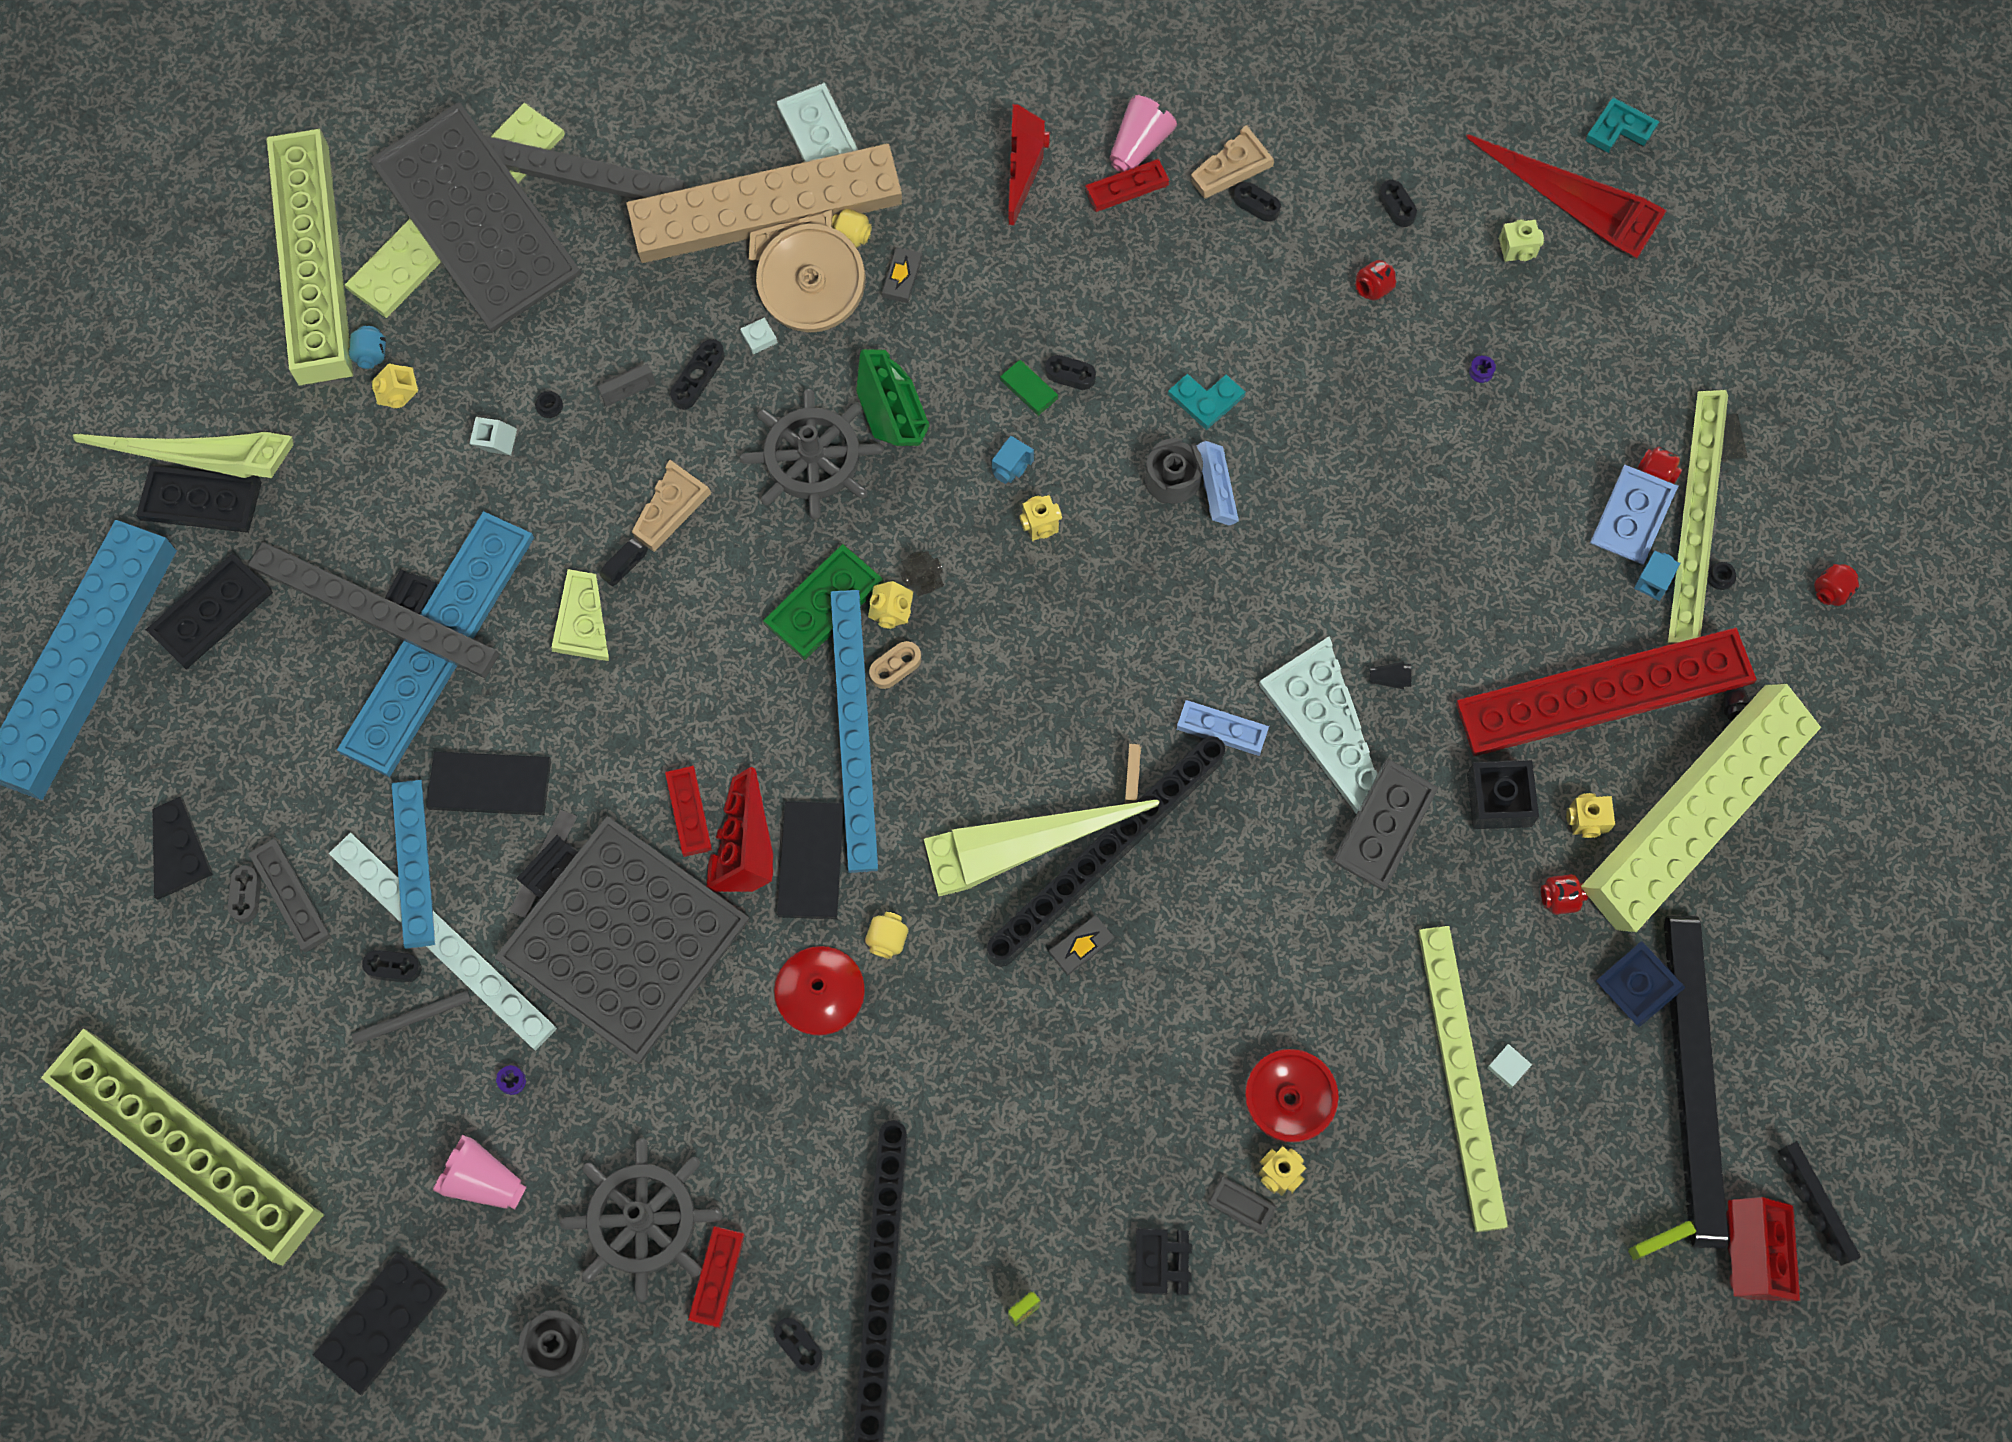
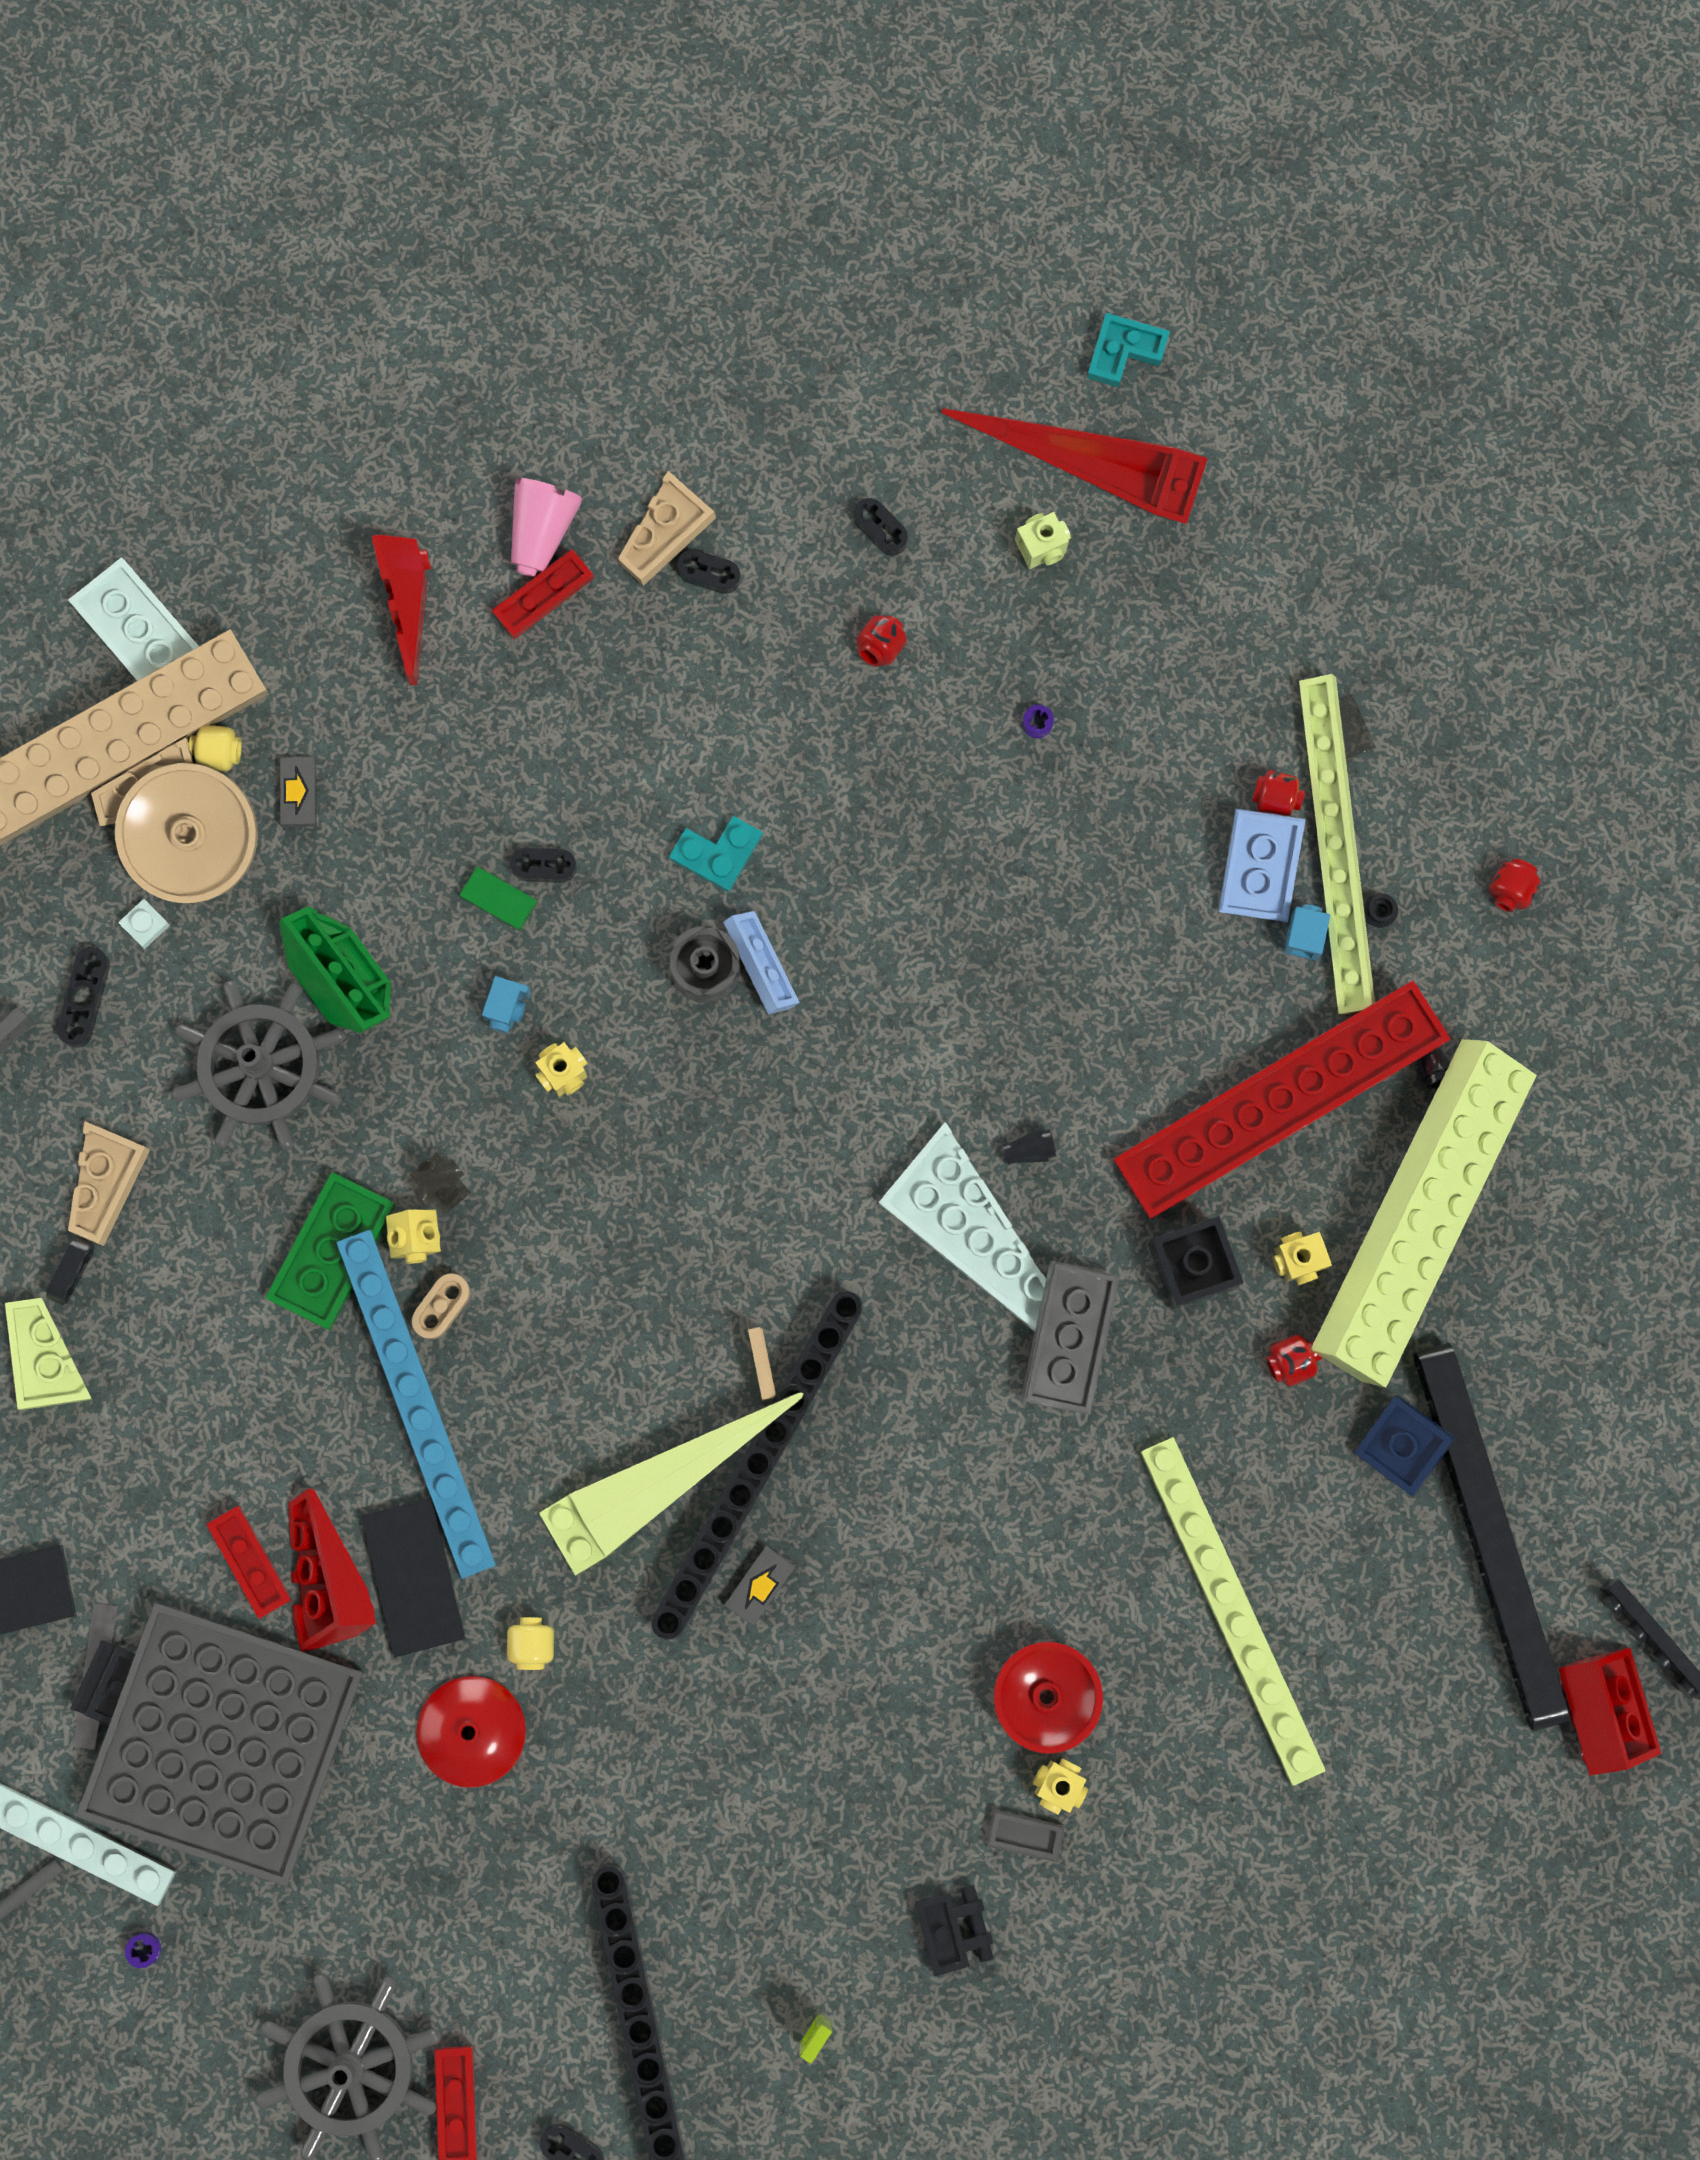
camera: 25 degrees left, 10 degrees up
(478, 1177) = (144, 2080): bright pink cone -> none
(1231, 729) = (850, 1271): light blue plate -> none
(1509, 1066) = (1282, 1582): light aqua tile -> none
(1661, 1240) = (1497, 1735): lime tile -> none

